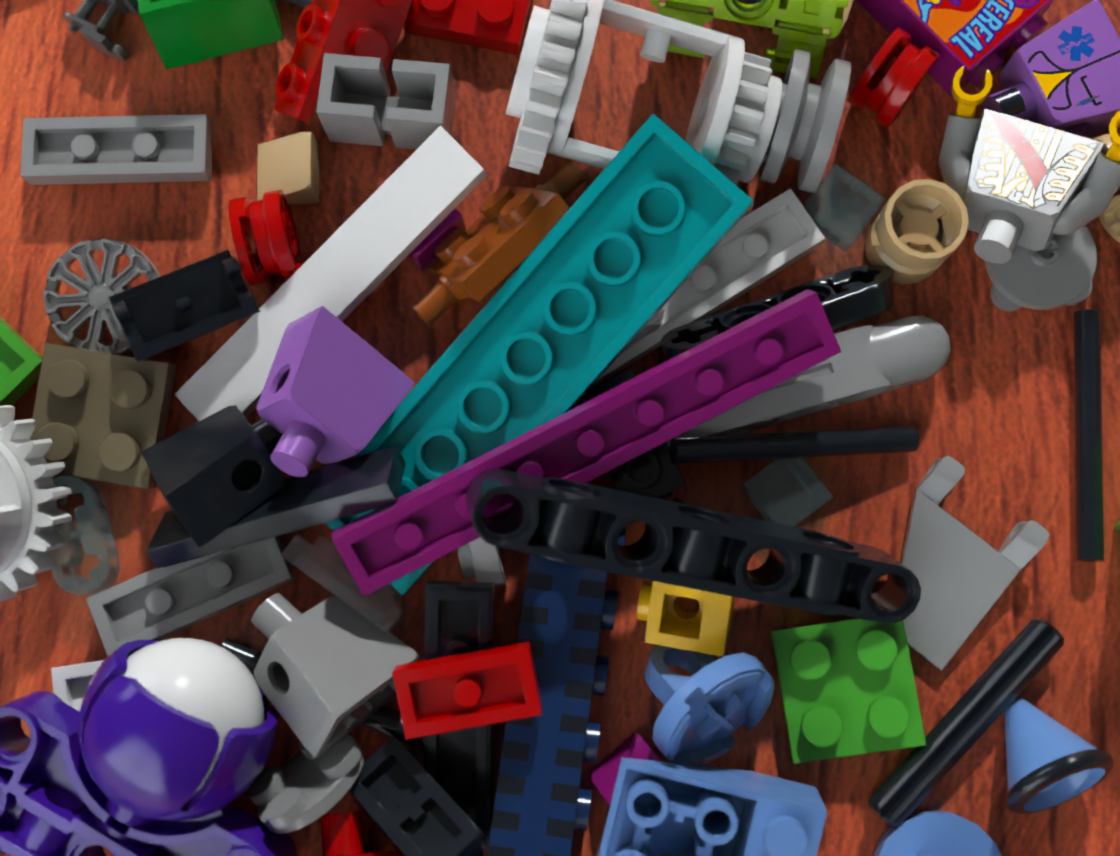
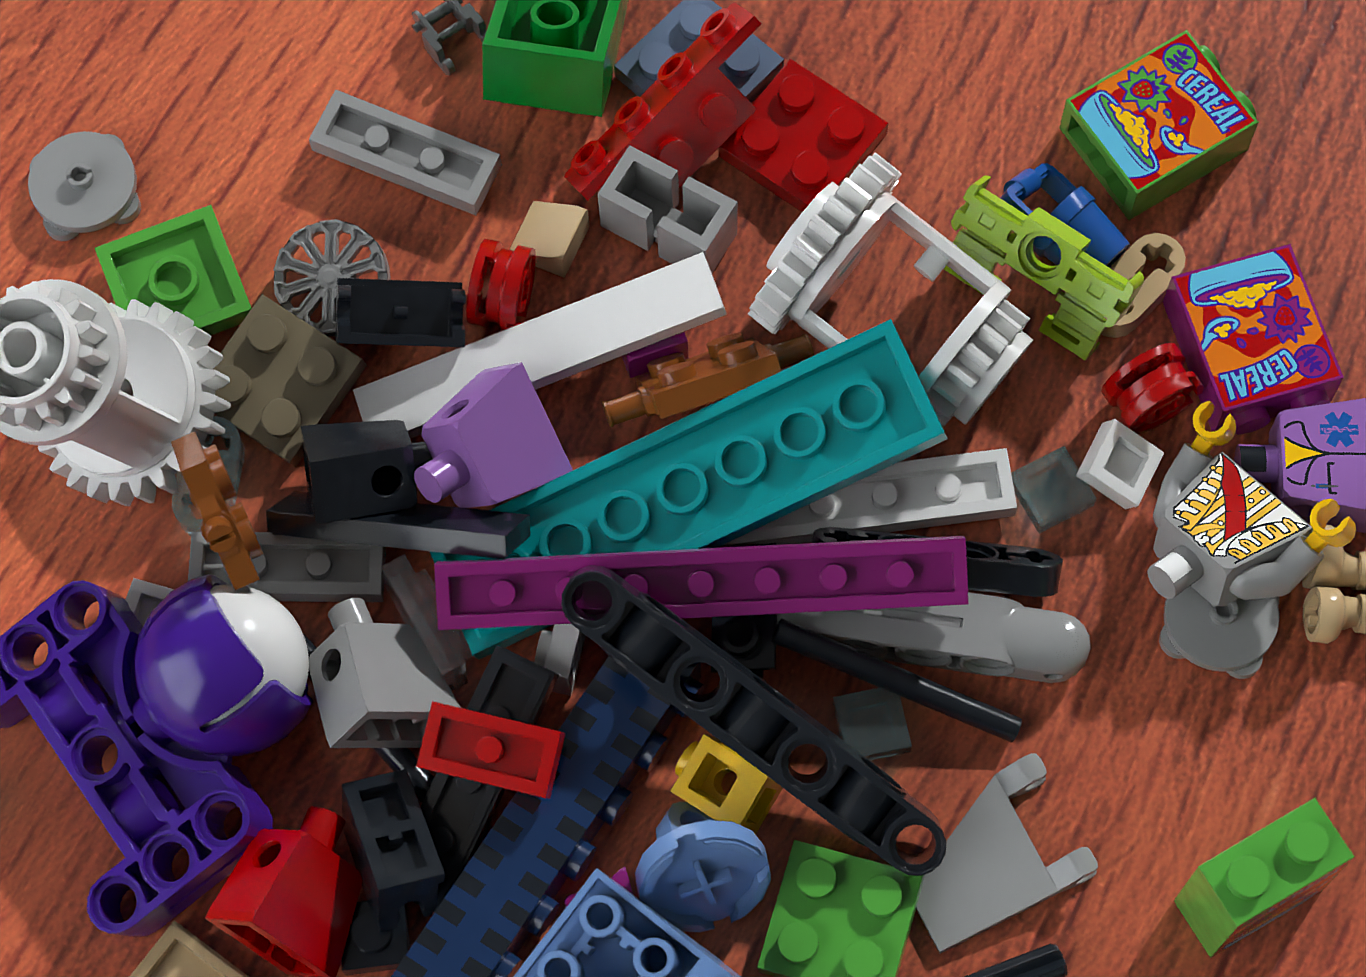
camera: 25 degrees right, 10 degrees down
(105, 594) = (222, 526): none -> dark orange plate
(306, 785) = (310, 777): light grey piece -> none
(806, 121) = (1042, 390): light grey wheel -> none
(892, 156) = (1120, 464): none -> white plate
(917, 230) = (1104, 537): tan wheel -> none
(1088, 436) = (1187, 802): black piece -> none

